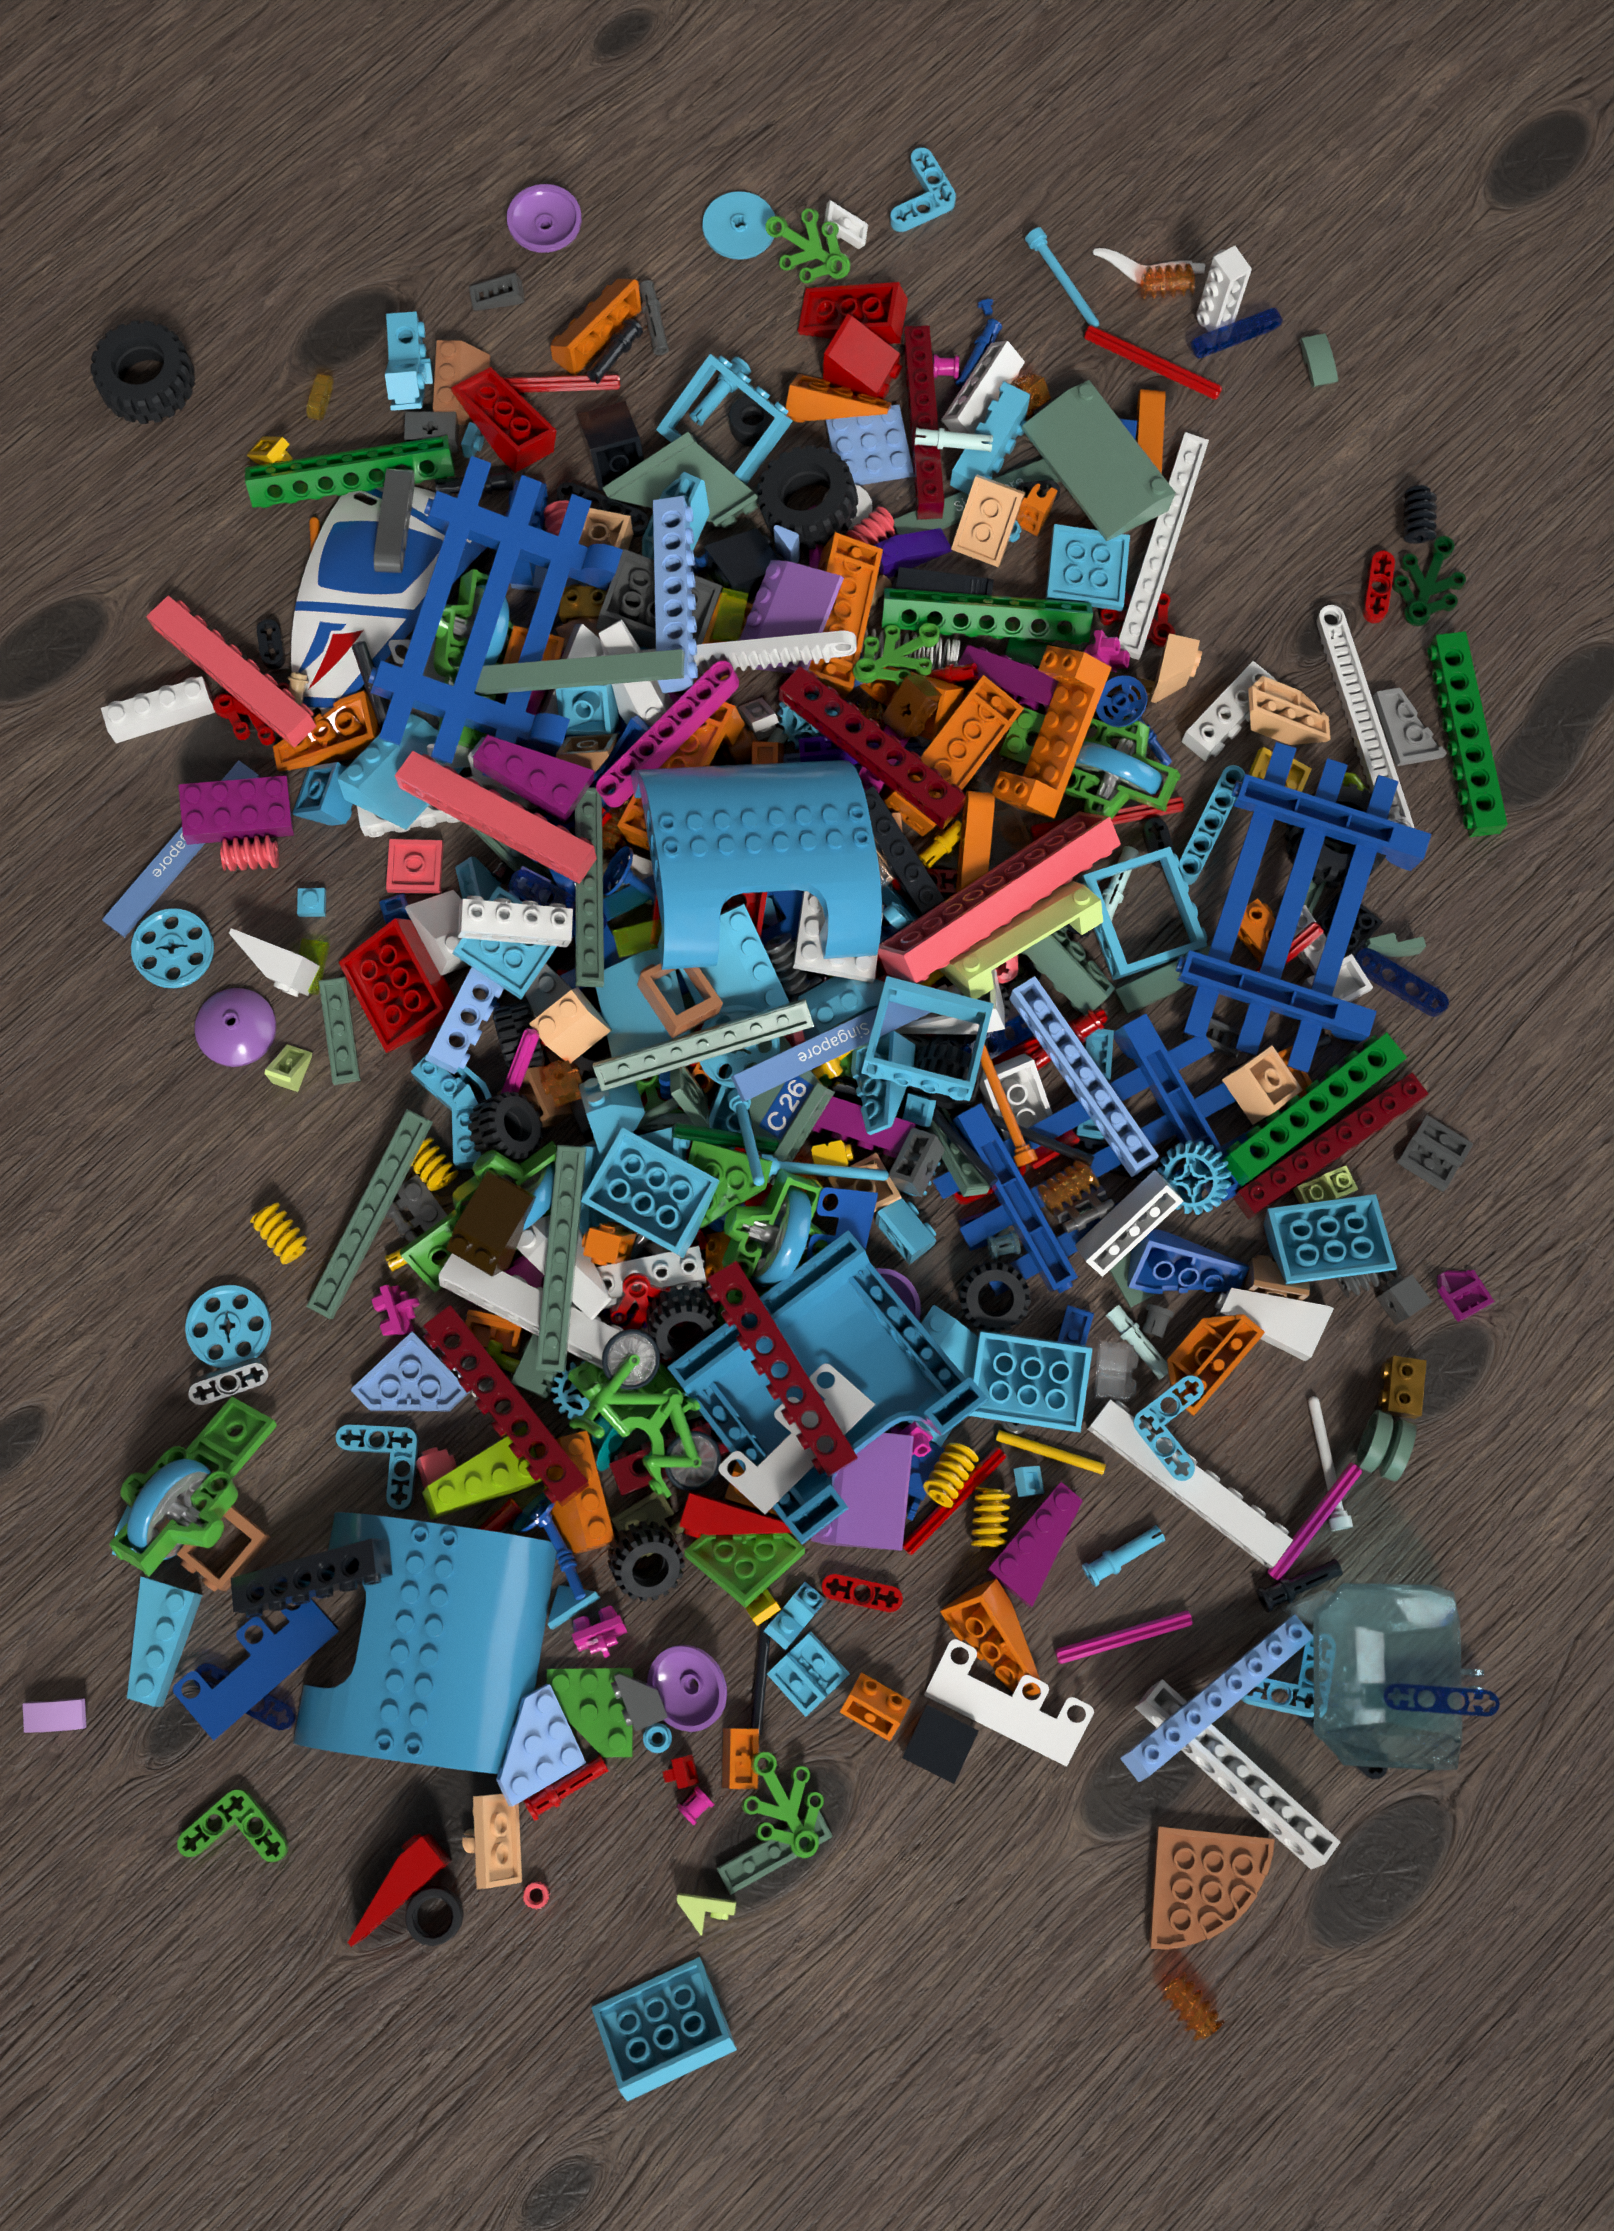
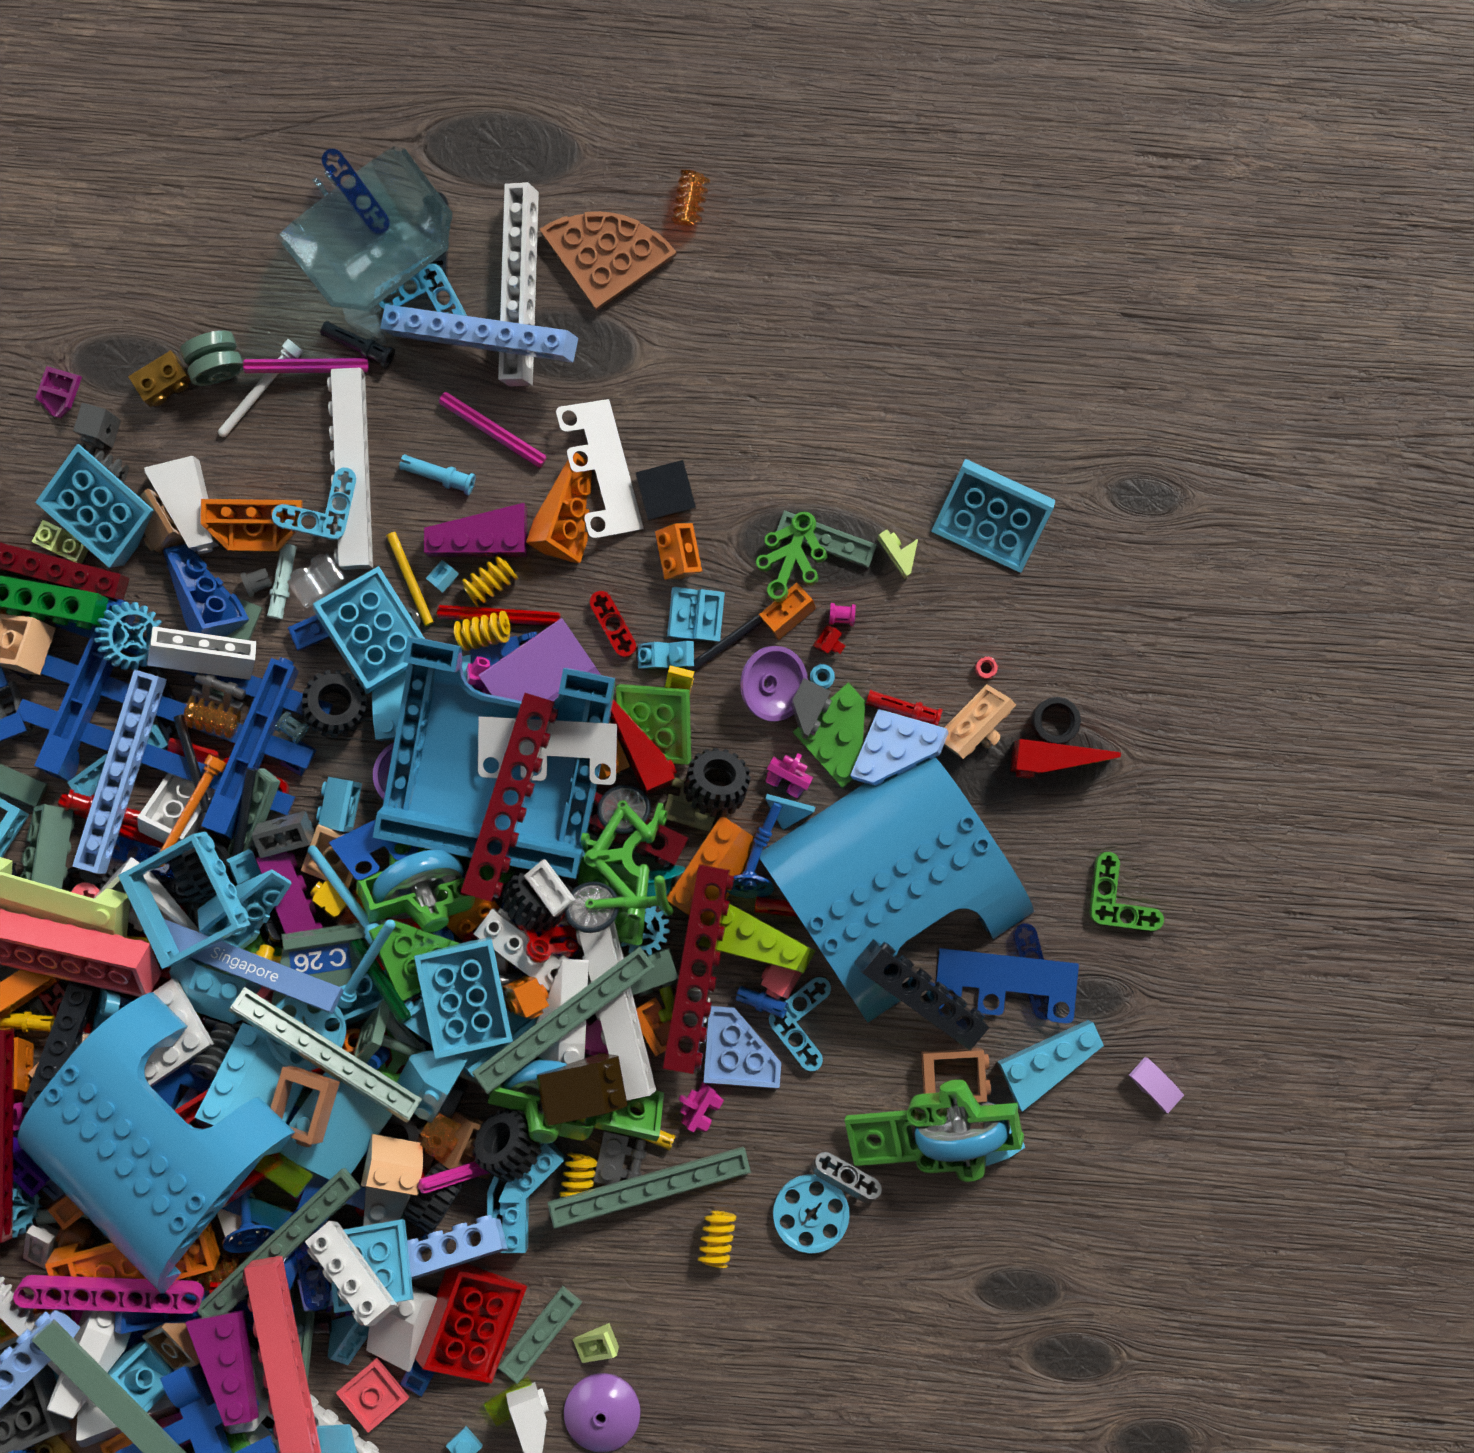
camera: 130 degrees left, 10 degrees up
(432, 1437) = (762, 1001): none -> blue pin
(677, 1338) = (549, 888): none -> white plate

